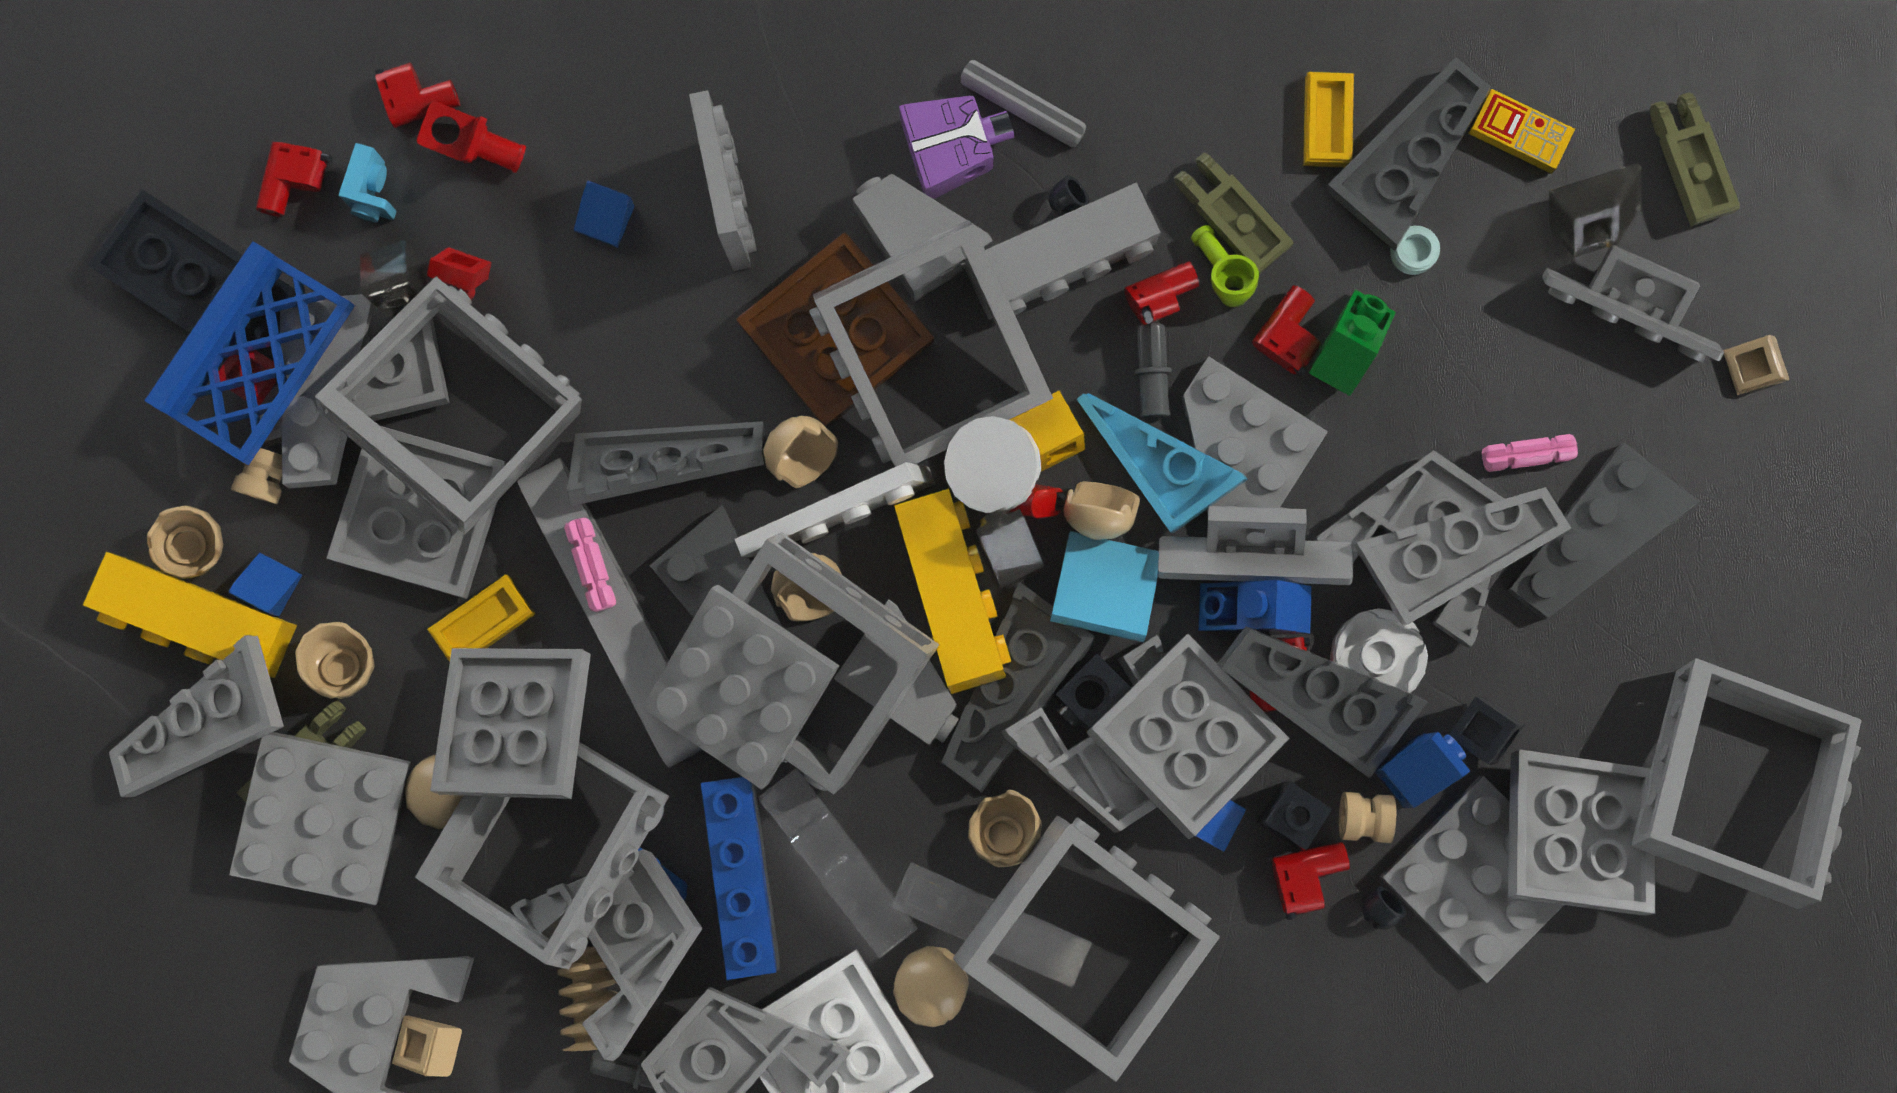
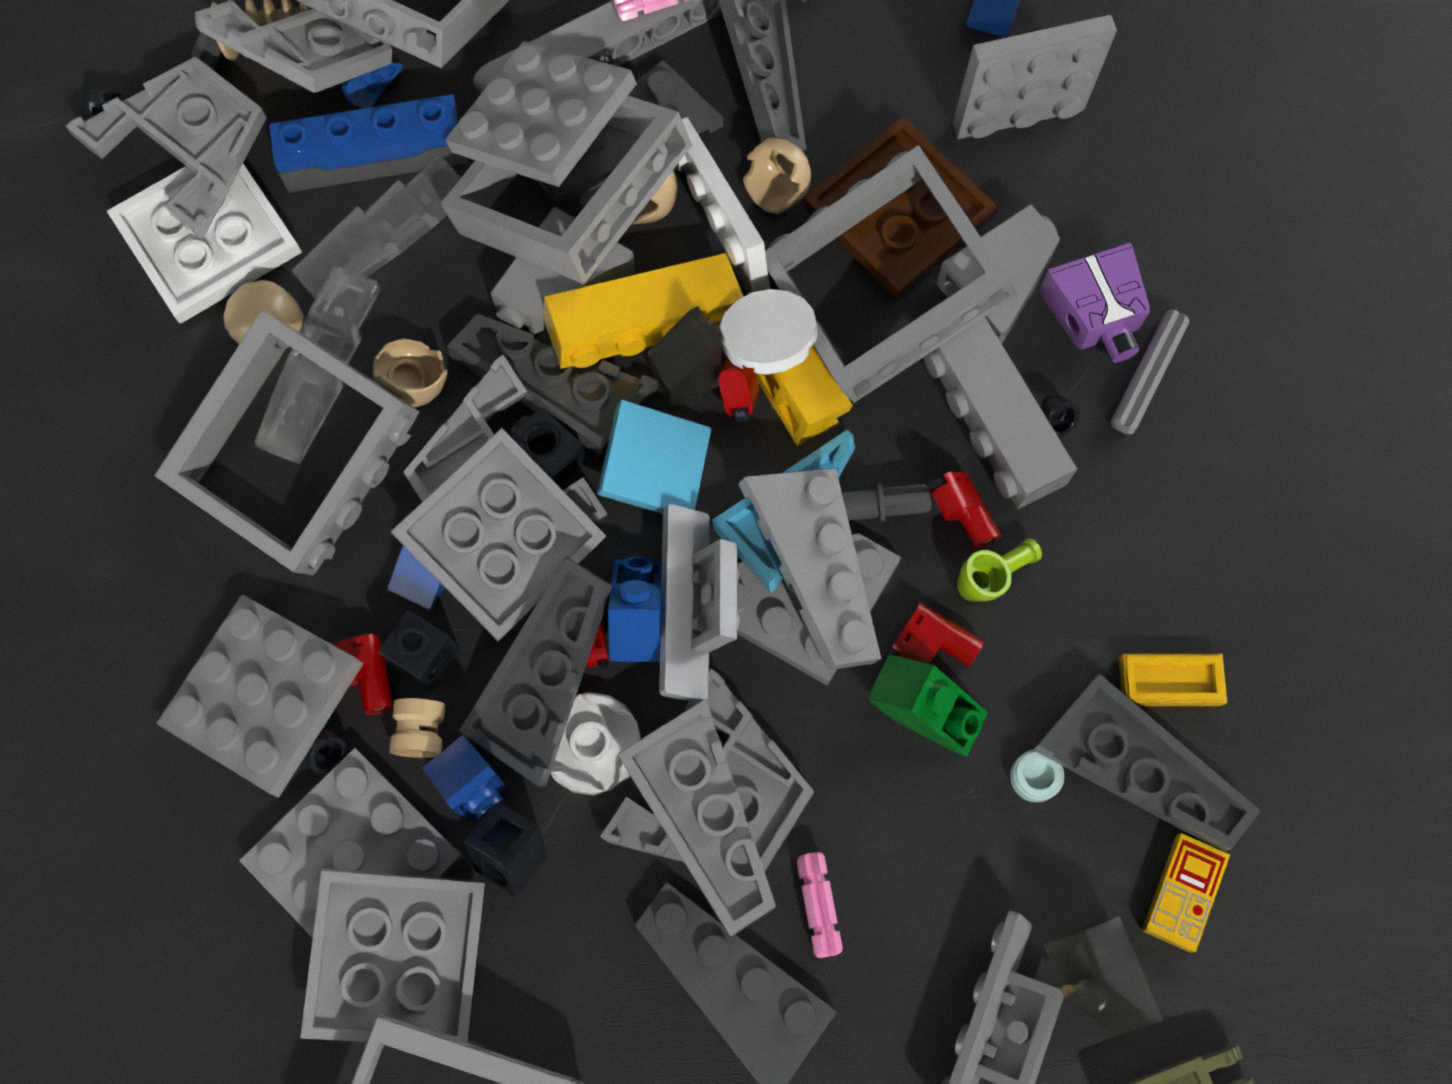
camera: 85 degrees right, 10 degrees down
(1100, 510) = (731, 449): tan hair -> none
(1199, 436) = (814, 542): none -> light grey wing
(1235, 214) = (1051, 583): olive hinge -> none
(1333, 968) = (260, 695): none -> light grey plate

